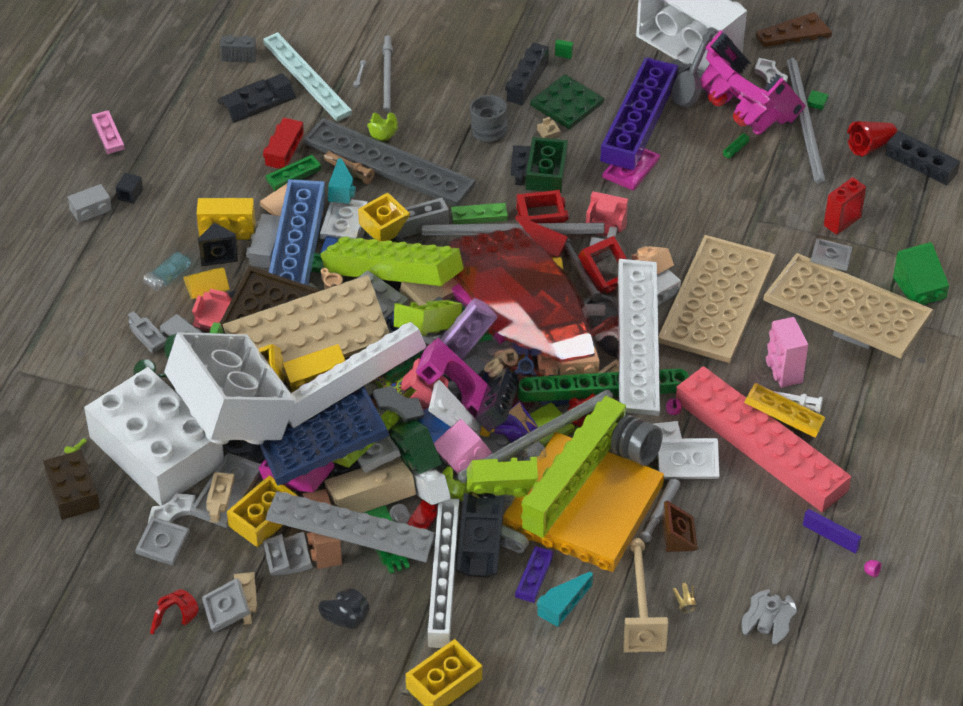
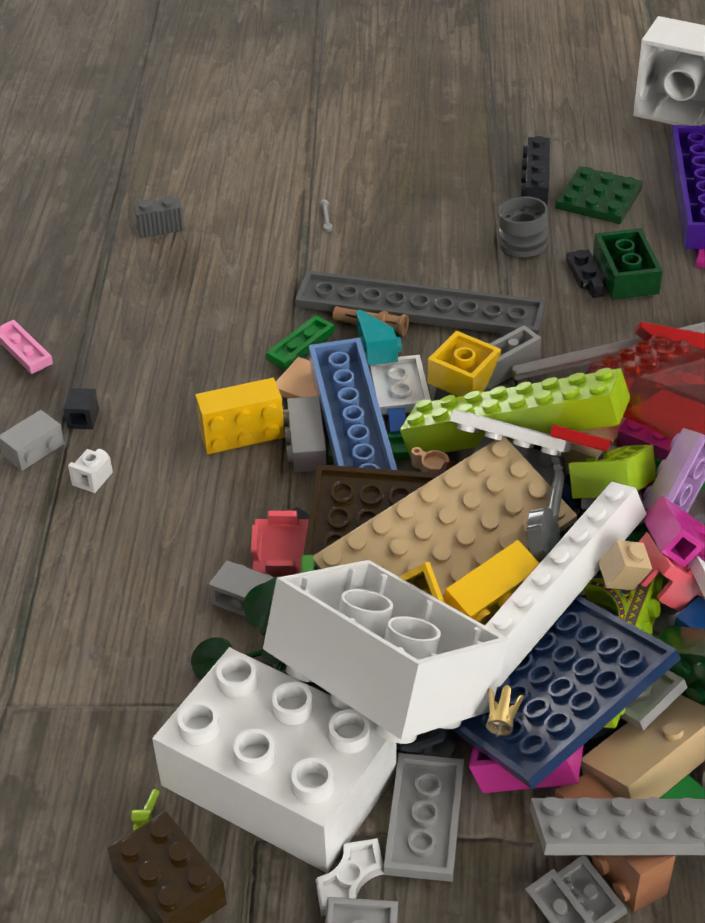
camera: 15 degrees left, 5 degrees down
(120, 233) = (95, 466): none -> white brick
(146, 332) = (188, 599): light grey hinge -> none
(153, 281) = (167, 524): clear hinge -> none
(172, 267) = (184, 501): clear light blue plate -> none
(206, 280) = (240, 510): yellow slope -> none
(217, 246) = (246, 453): black slope -> none
(219, 494) = (425, 829): tan hinge -> none
(250, 512) = (501, 840): yellow brick -> none
(258, 97) = (209, 265): black piece -> none
(277, 445) = (501, 715): none -> pearl gold piece
(283, 143) = (269, 310): red brick -> none
(307, 77) = (264, 231): light aqua plate -> none
(359, 338) = (542, 524): none -> dark grey piece
(378, 276) = (521, 436): none -> white plate
(382, 129) = (393, 267): lime cap -> none
(387, 50) = (349, 185): light grey bar -> none
(393, 374) = (625, 565): none -> tan brick
(407, 408) = (637, 605): dark grey tile -> none
(413, 288) = (580, 438): none -> red tile
(479, 213) = (574, 339): bright green plate -> none
(541, 199) = (626, 312): red window -> none
(548, 129) = (596, 225): tan tile -> none
(564, 49) = (562, 141): green tile -> none

